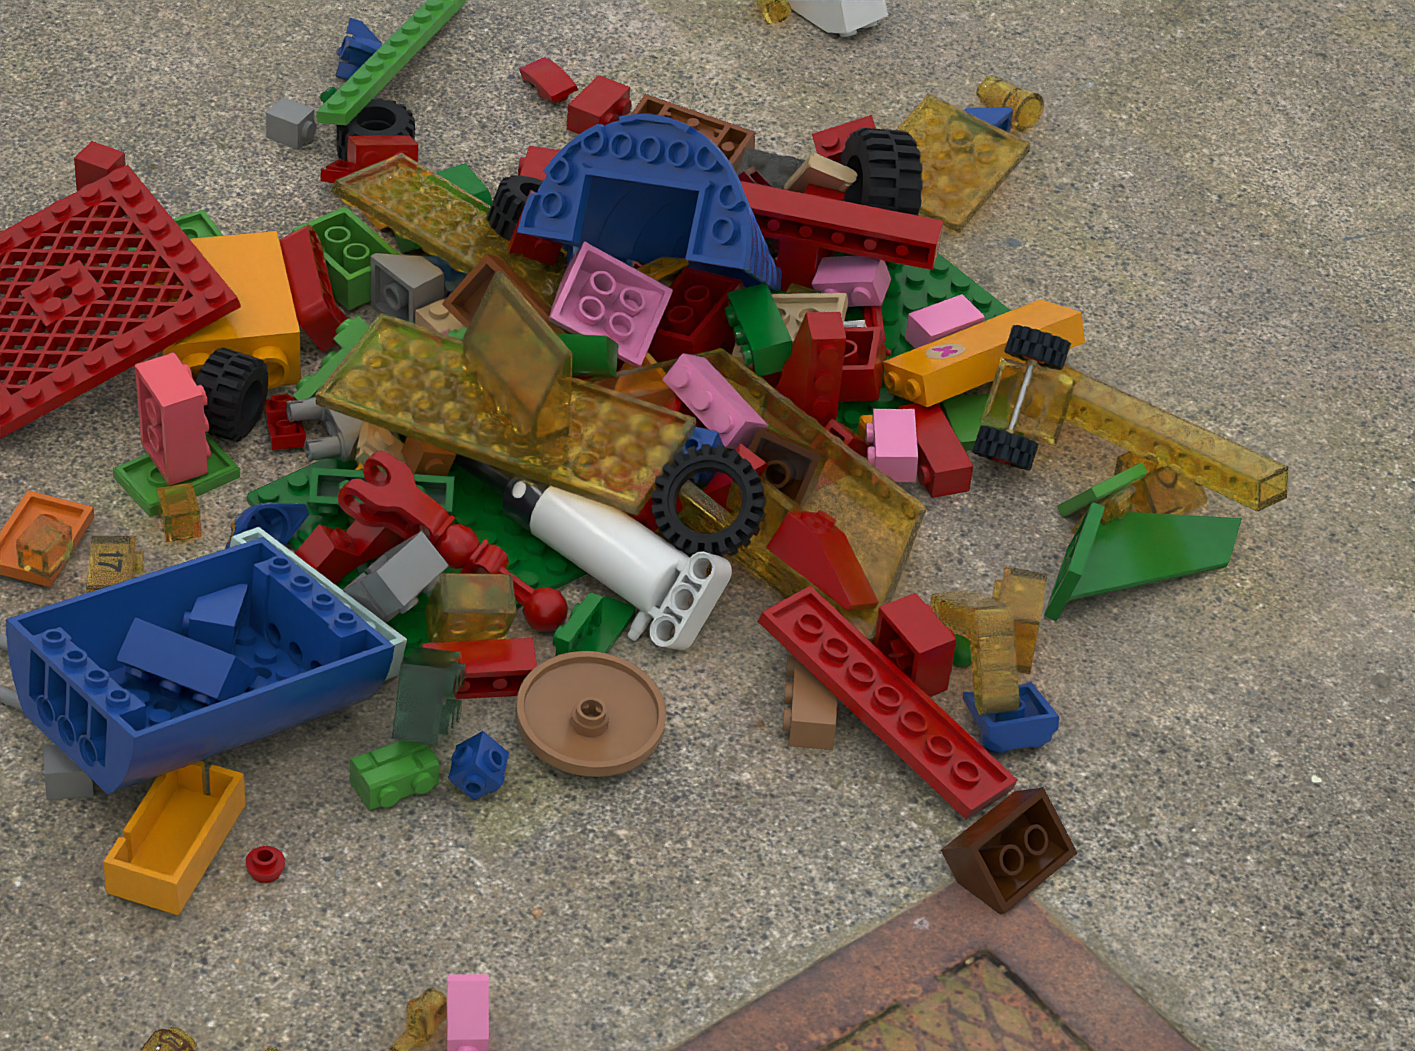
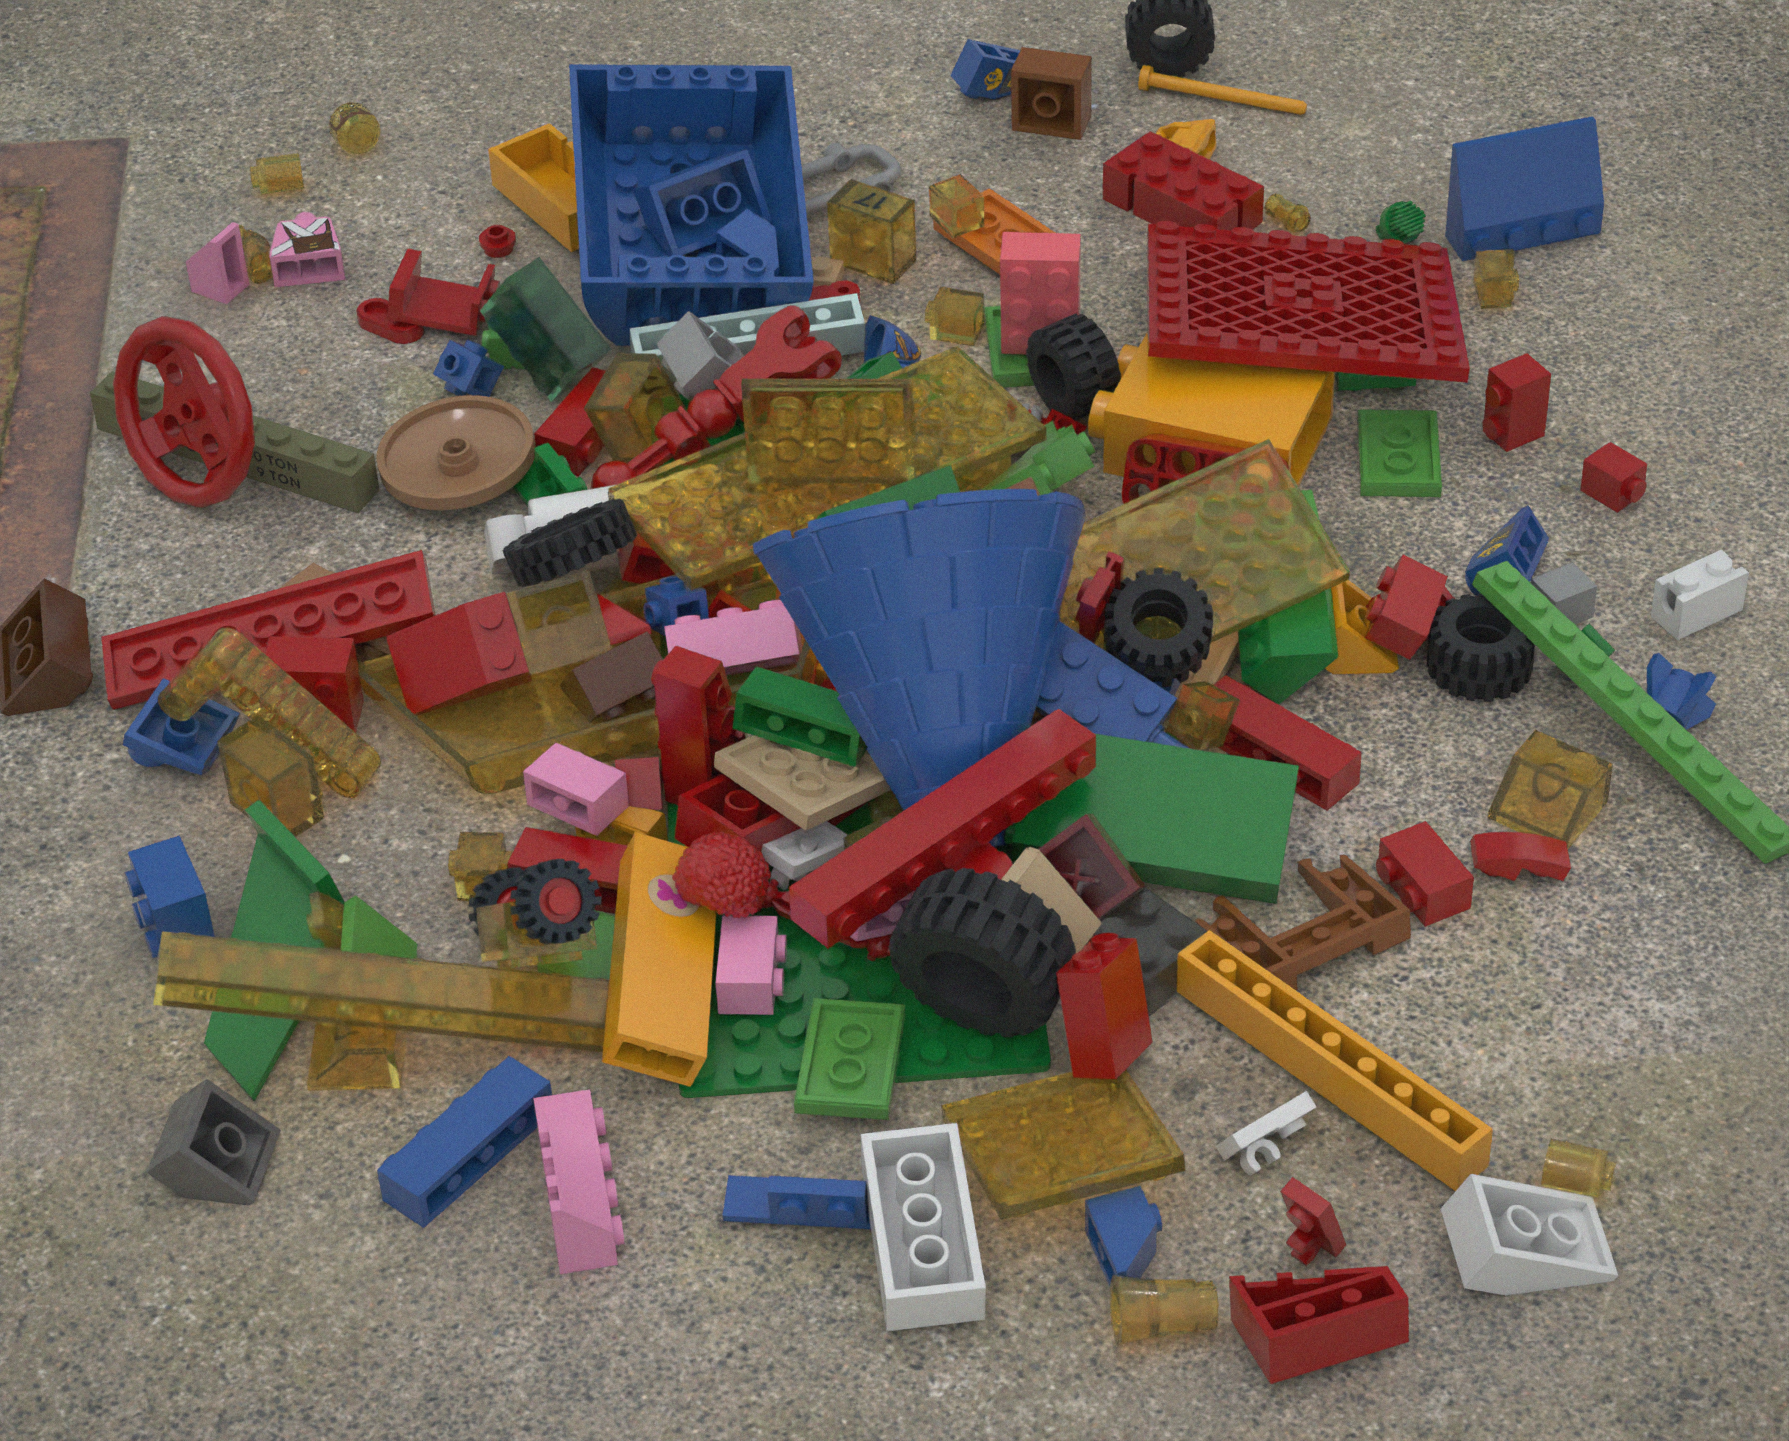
camera: 130 degrees right, 0 degrees up
(139, 134) = (1614, 477): none -> red brick
(244, 68) = (1699, 595): none -> white brick
(278, 147) = (1518, 542): none -> blue slope
(382, 984) = (306, 252): none -> bright pink torso
(387, 839) = (435, 301): none -> red panel
(430, 881) = (373, 316): none -> red tile
(483, 81) = (1551, 789): none -> clear yellow slope
(685, 879) = (280, 454): none -> olive brick
(724, 838) = (201, 408): none -> red piece
(788, 82) = (1334, 1060): none -> light orange brick
(849, 104) = (1284, 1120): none -> white plate
(906, 64) = (1314, 1223): none -> red plate
(916, 326) = (723, 875): none -> red hair
(965, 43) = (1318, 1321): none -> red wedge
(966, 270) = (850, 1059): none -> bright green tile
(974, 497) = (475, 858): none -> clear yellow brick
(1056, 185) = (922, 1227): none -> white brick
(1072, 242) = (797, 1201): none -> blue bracket
(1160, 338) = (576, 1181): none -> bright pink wedge
(1166, 607) = (167, 892): none -> blue brick
(1191, 396) = (463, 1142): none -> blue brick
(1308, 502) = (213, 1147): none -> flat silver slope

